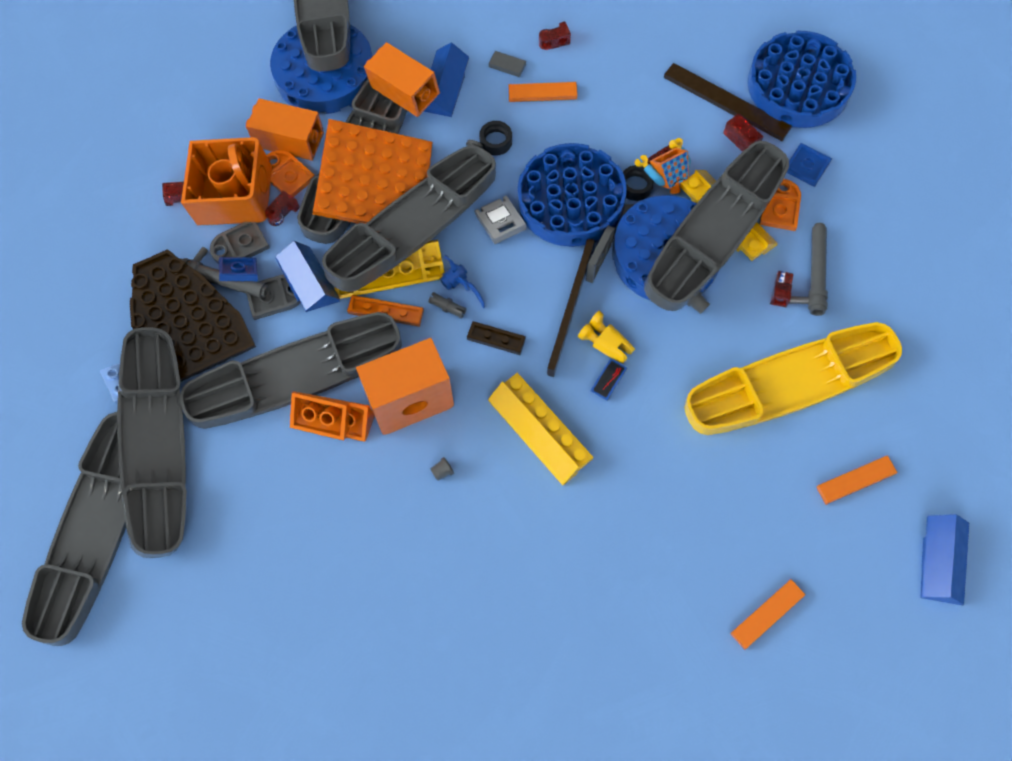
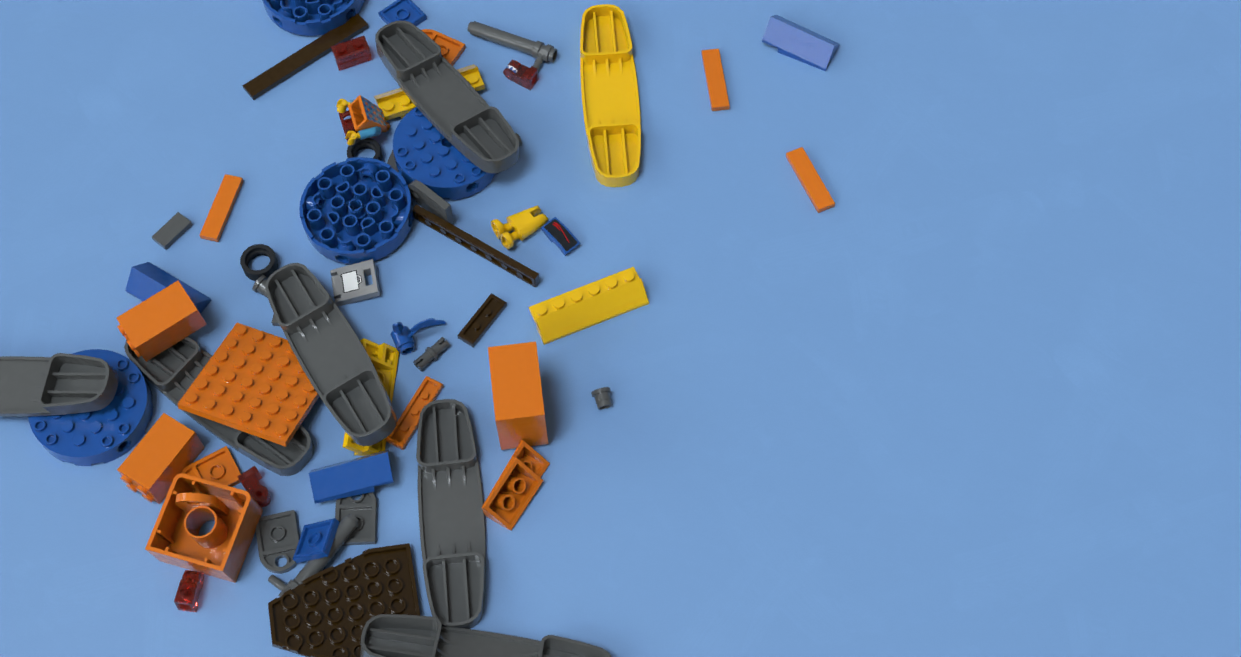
camera: 75 degrees left, 5 degrees down
(554, 37) = (162, 177): clear red leg -> none

